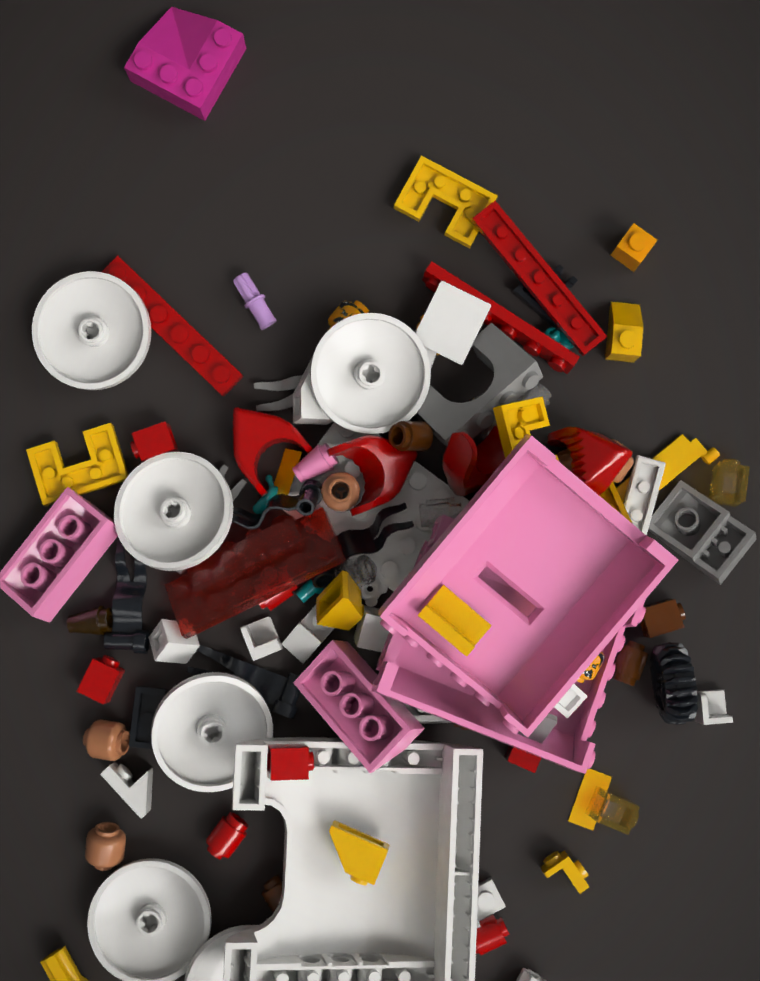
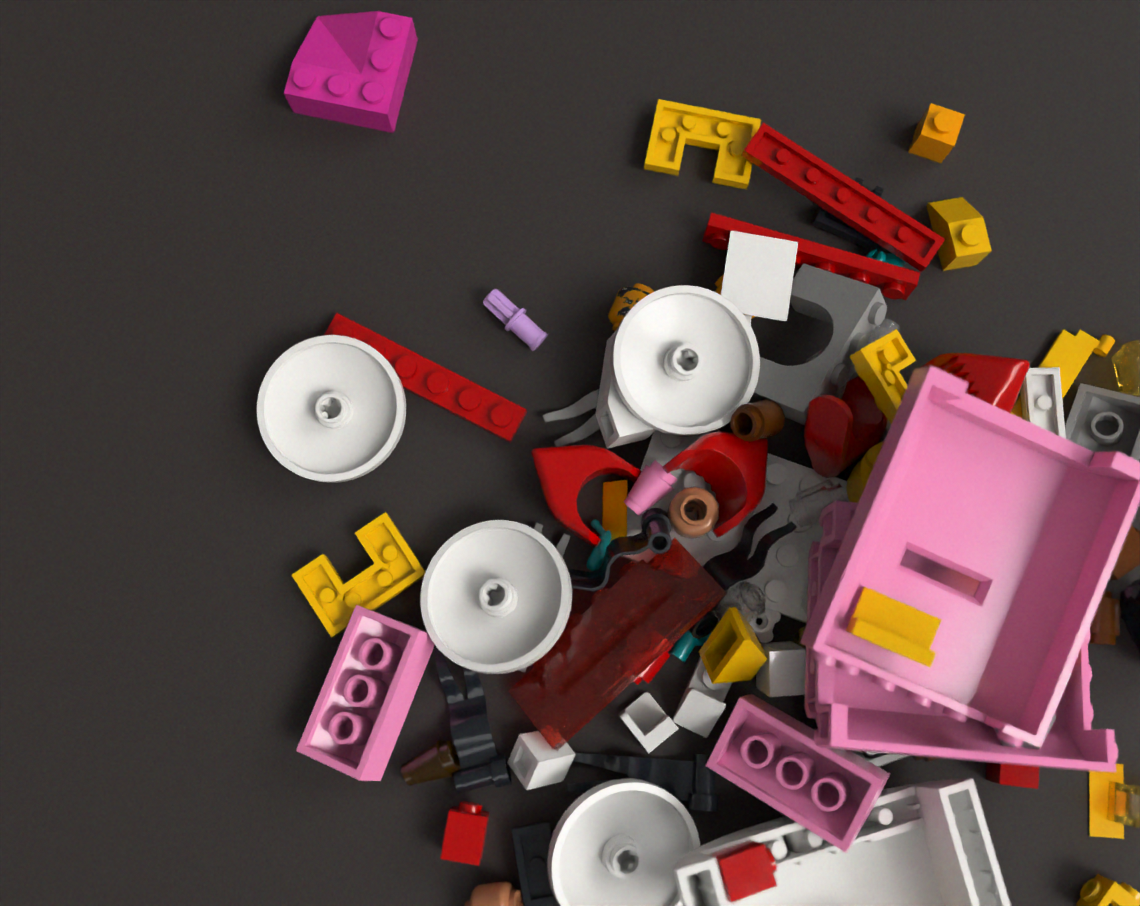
camera: 15 degrees left, 5 degrees down
(153, 441) = (443, 520): red brick -> none

